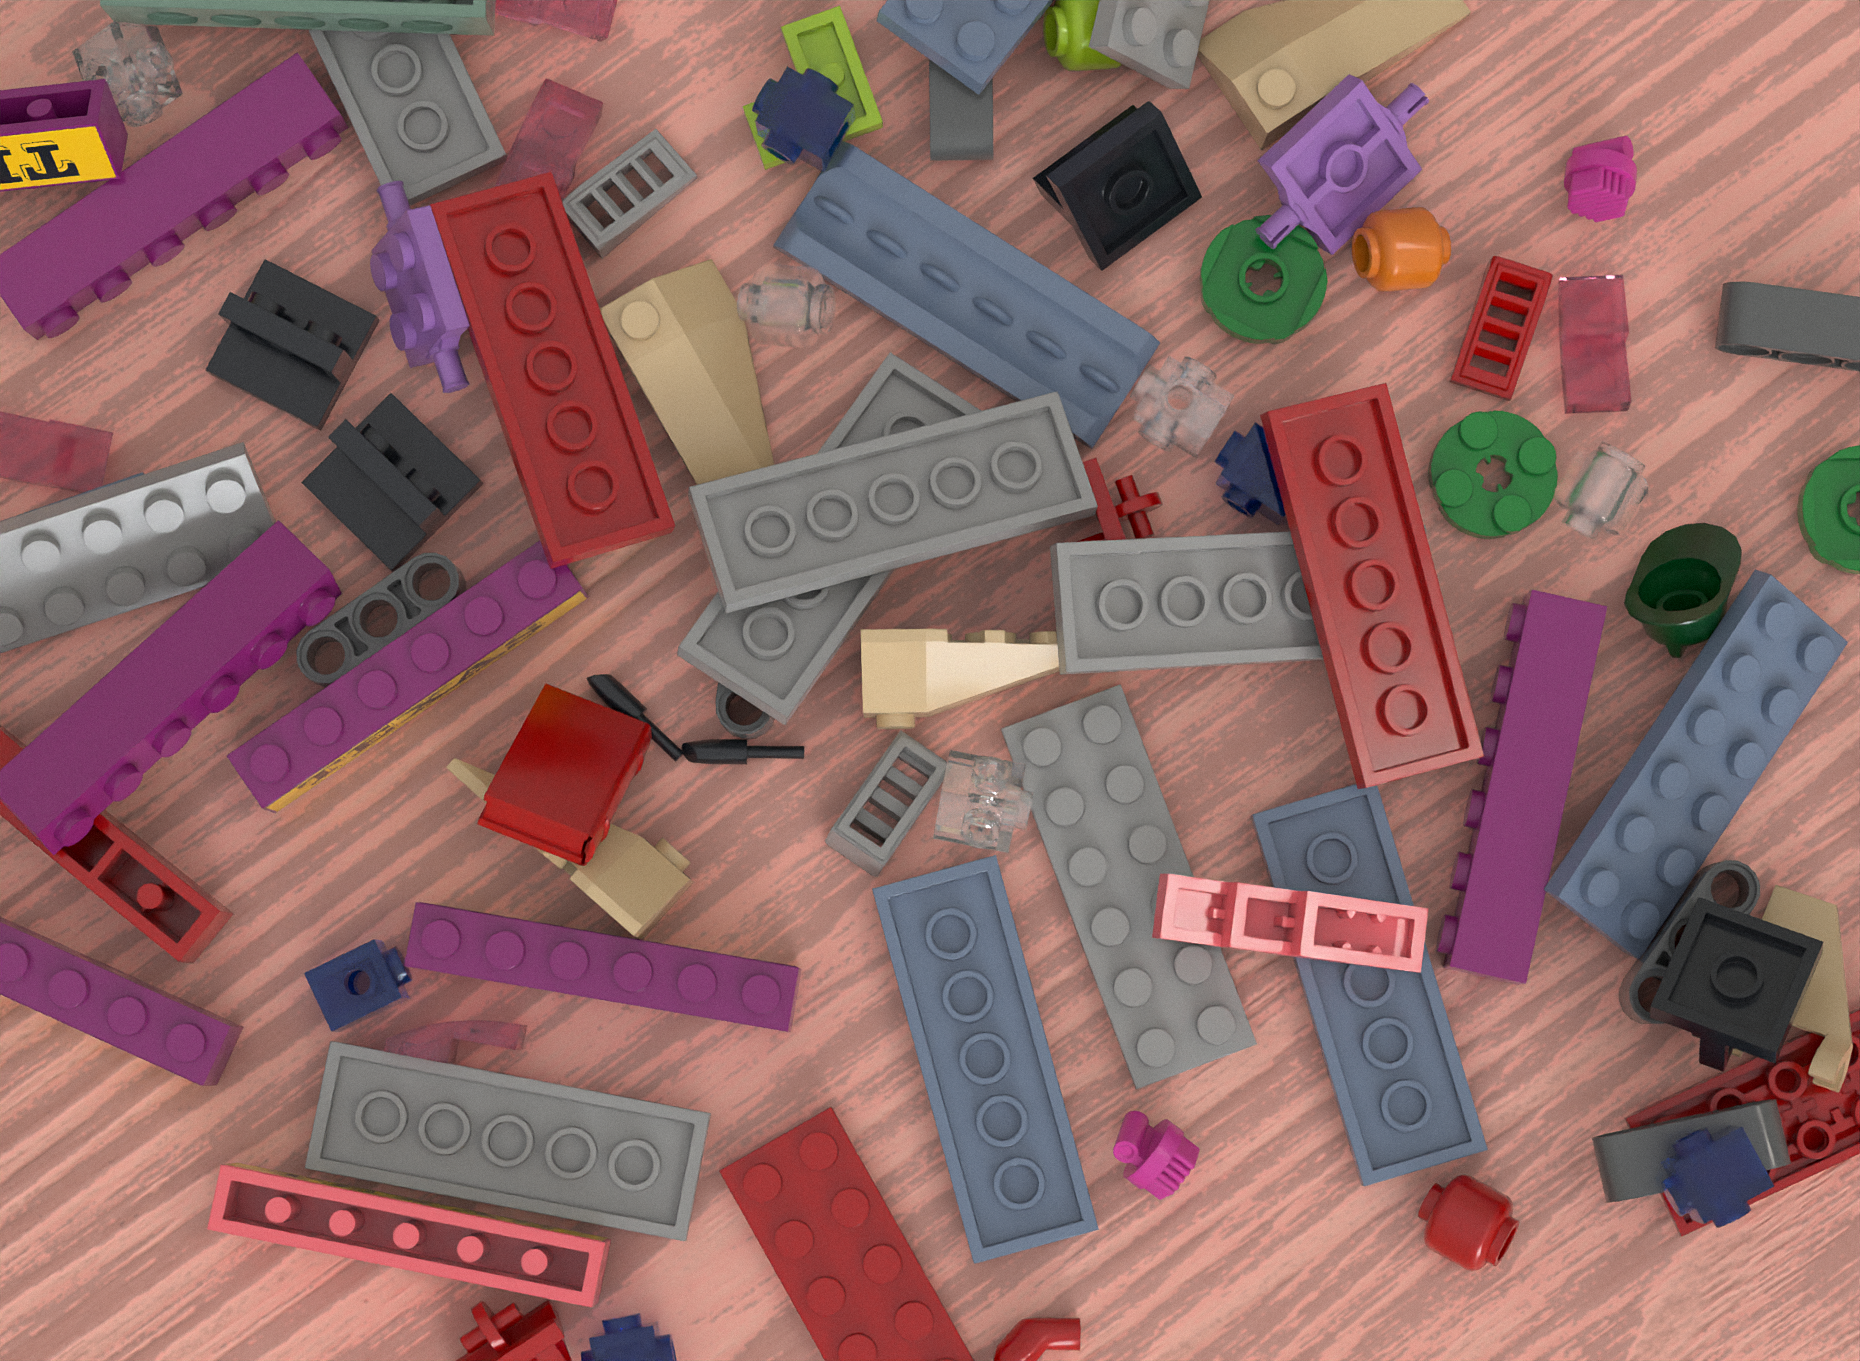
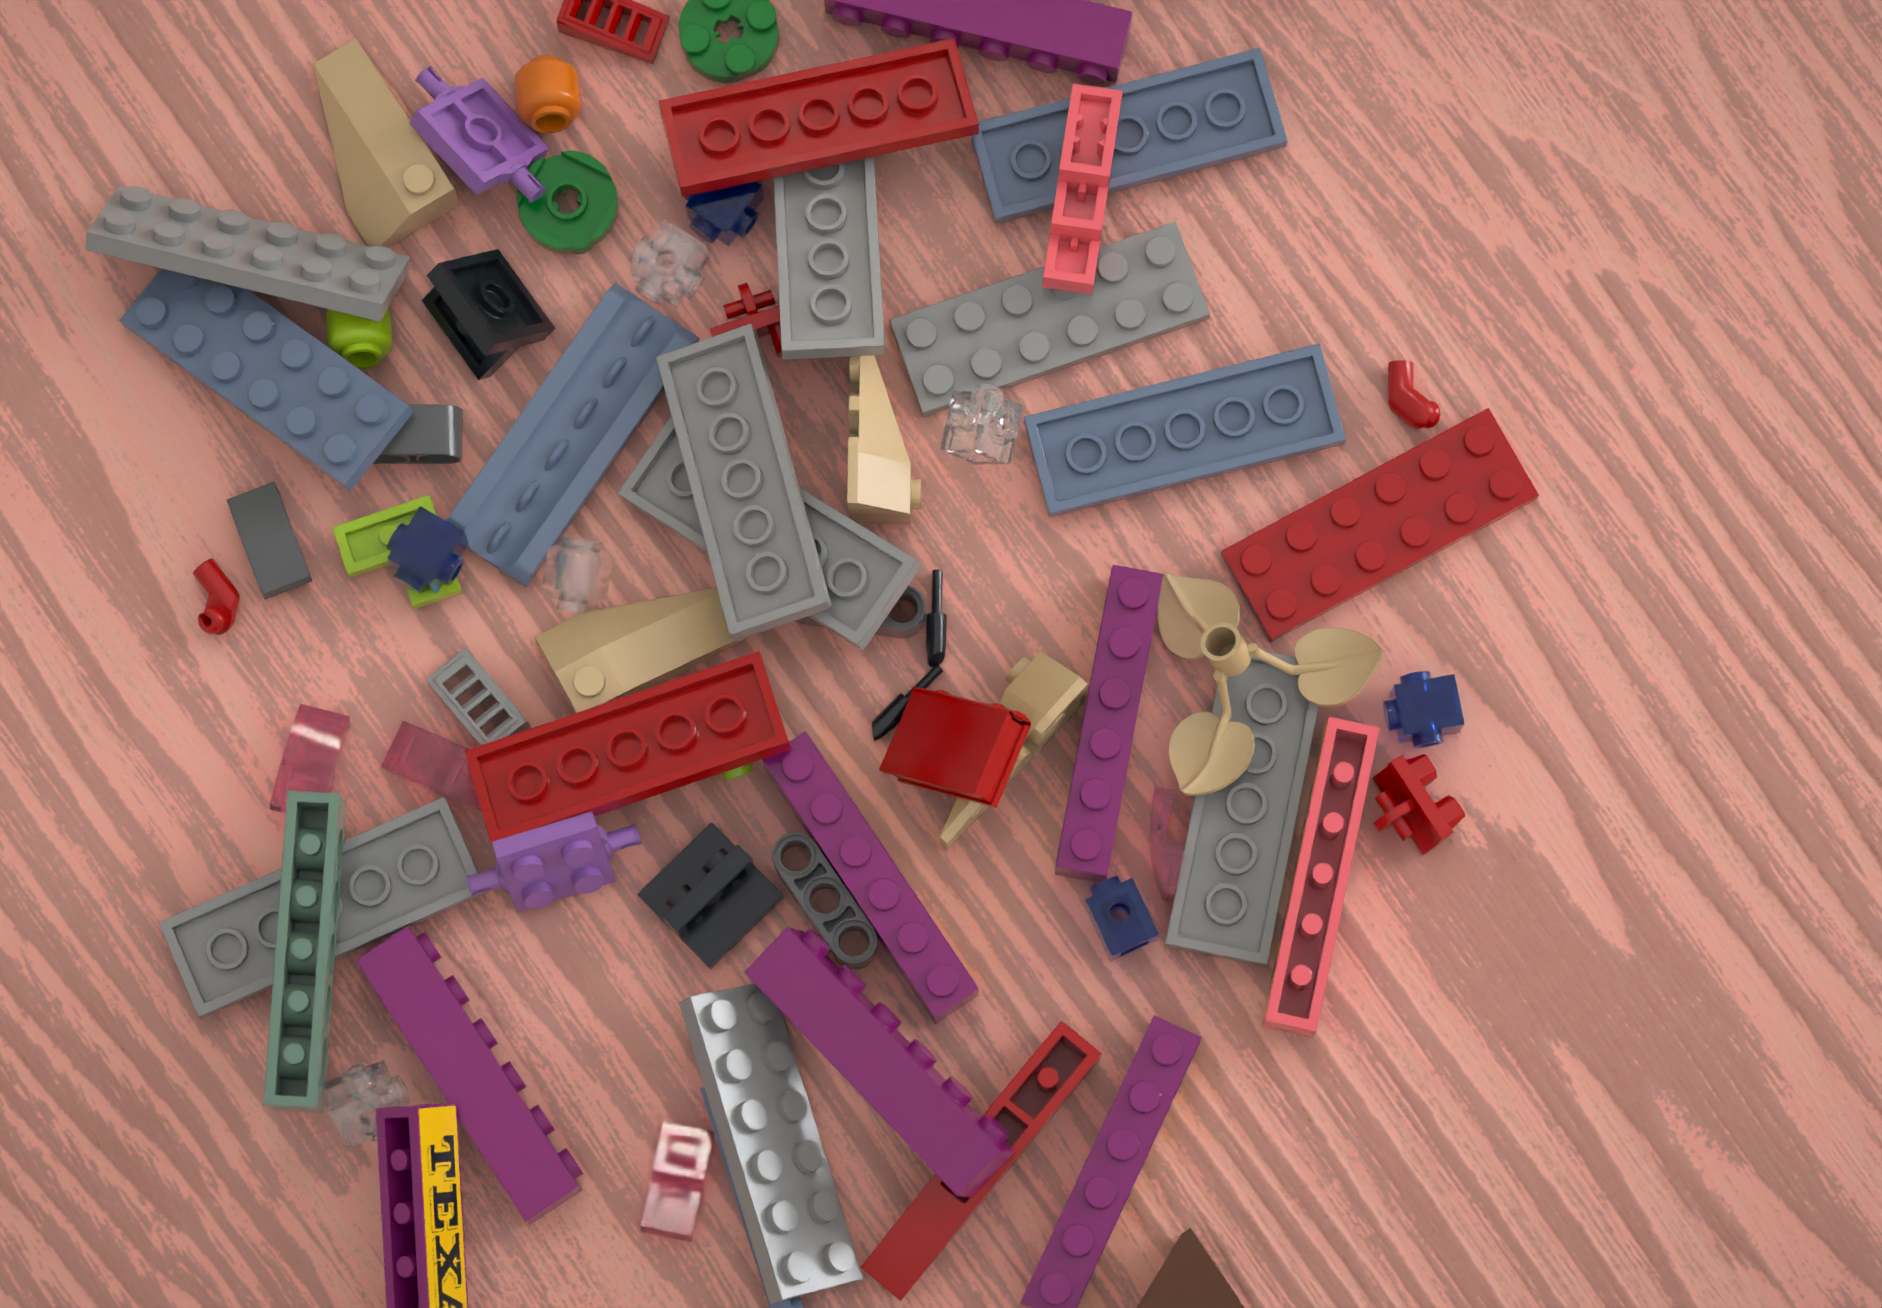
camera: 90 degrees left, 5 degrees down
(291, 344) = (594, 976): black bracket -> none
(743, 1072) = (1201, 620): none -> tan plant
(859, 848) = (1014, 527): light grey slope -> none
(1154, 1156) = (1262, 299): dark pink piece -> none
(1468, 1222) = (1316, 64): red head -> none

